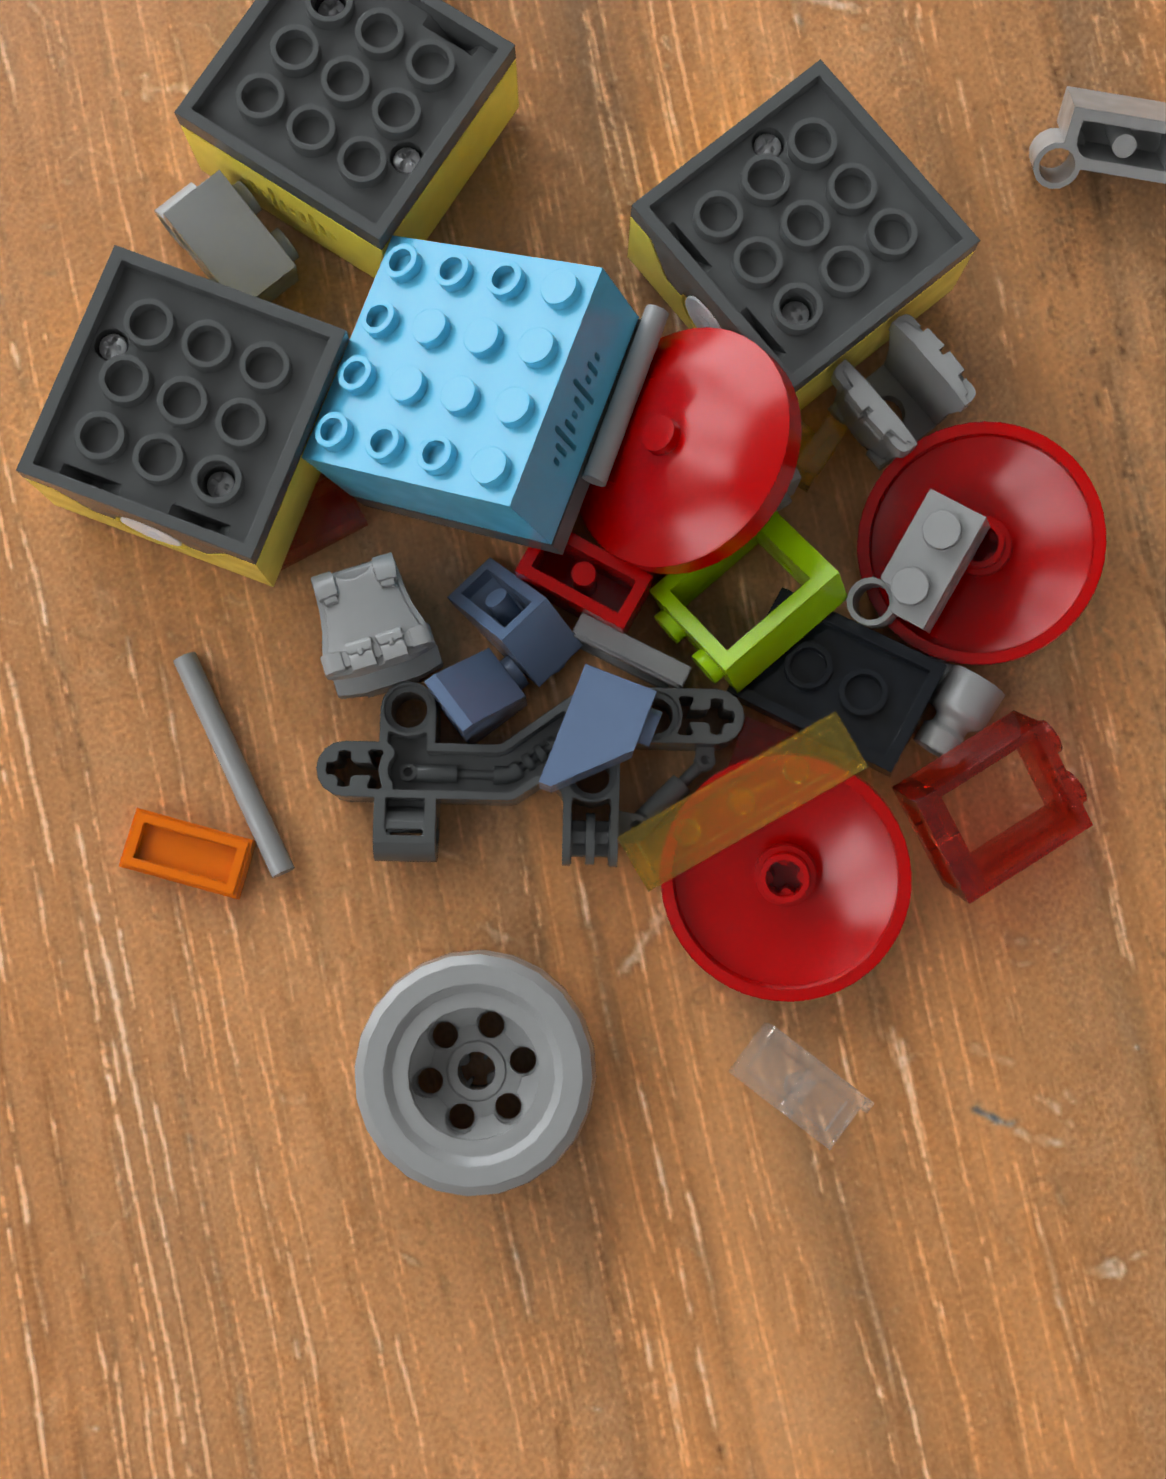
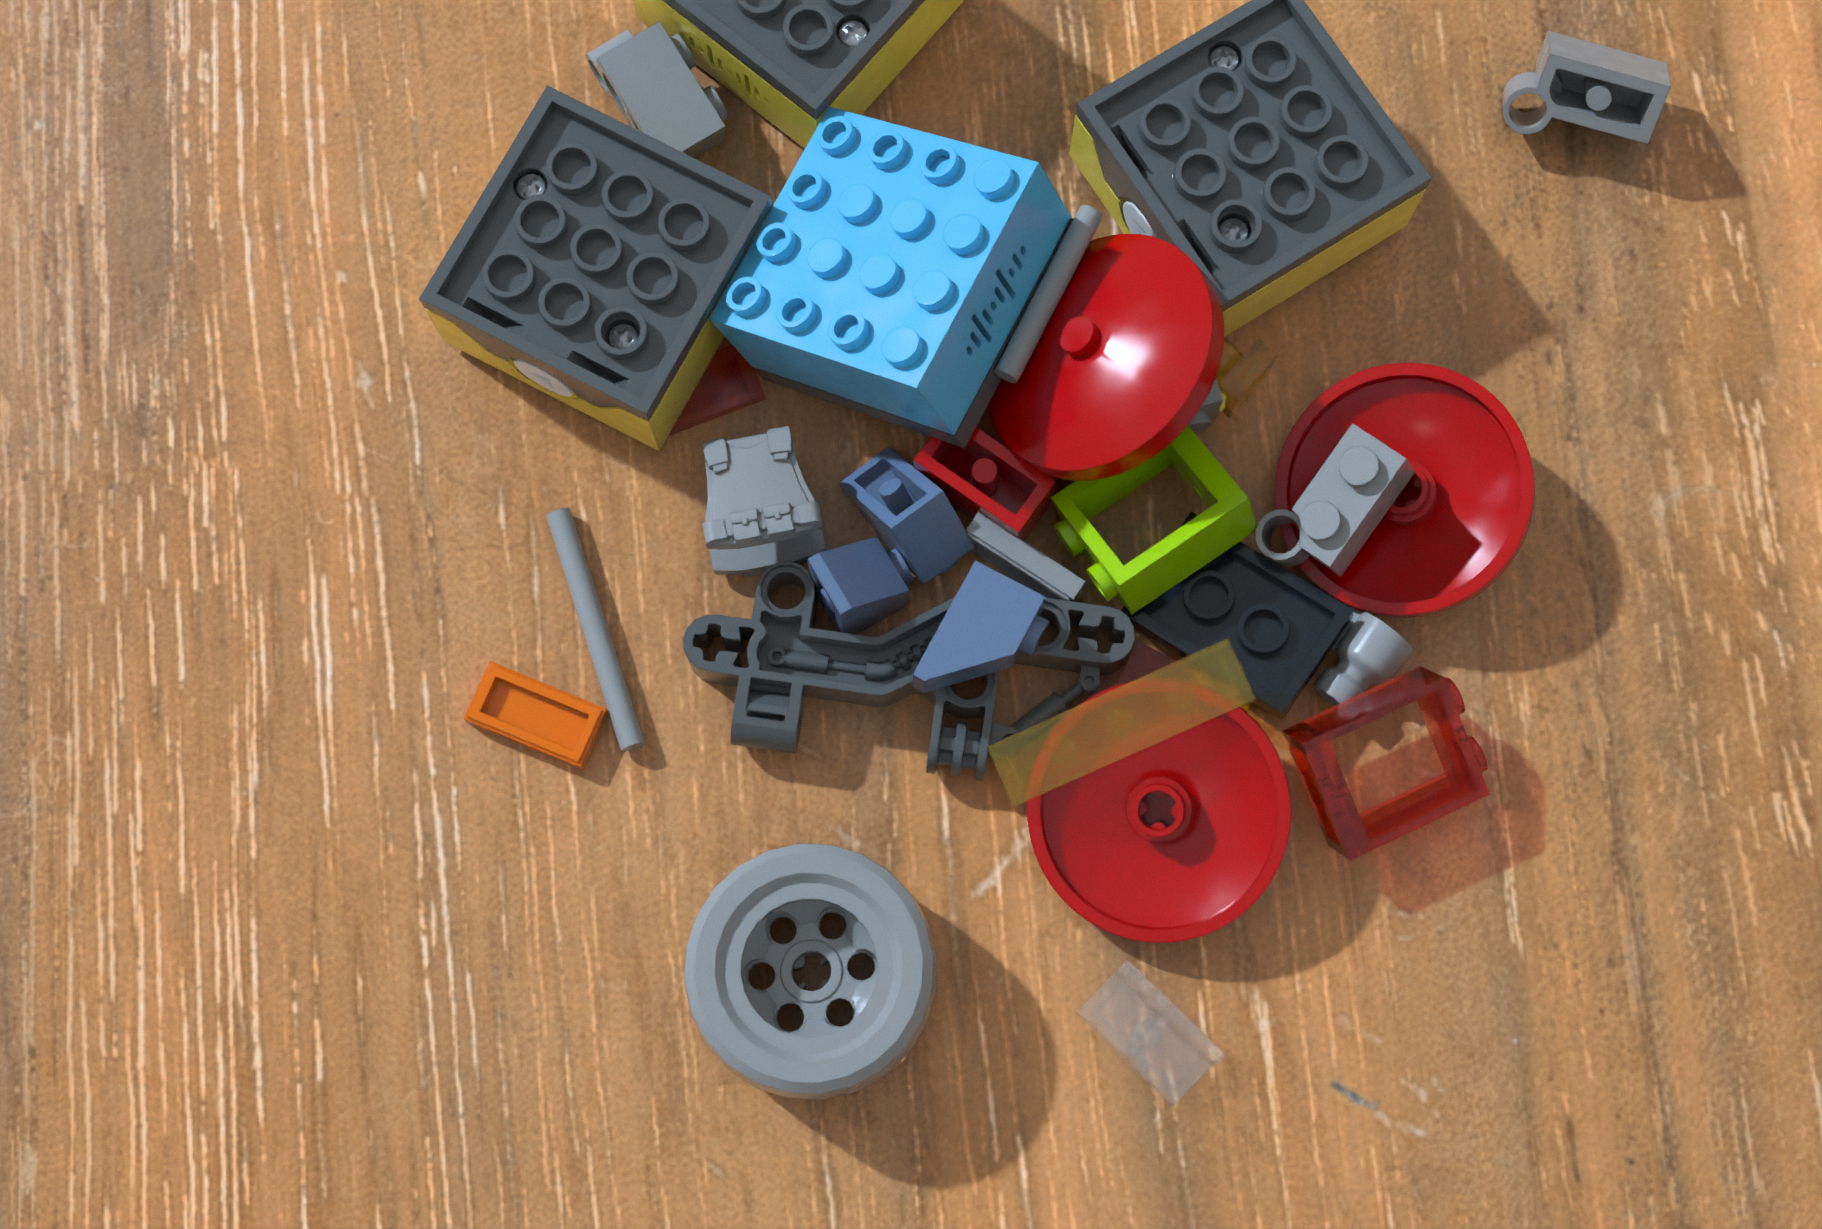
camera: 10 degrees right, 5 degrees down
(912, 377) = (1353, 311): light grey piece -> none

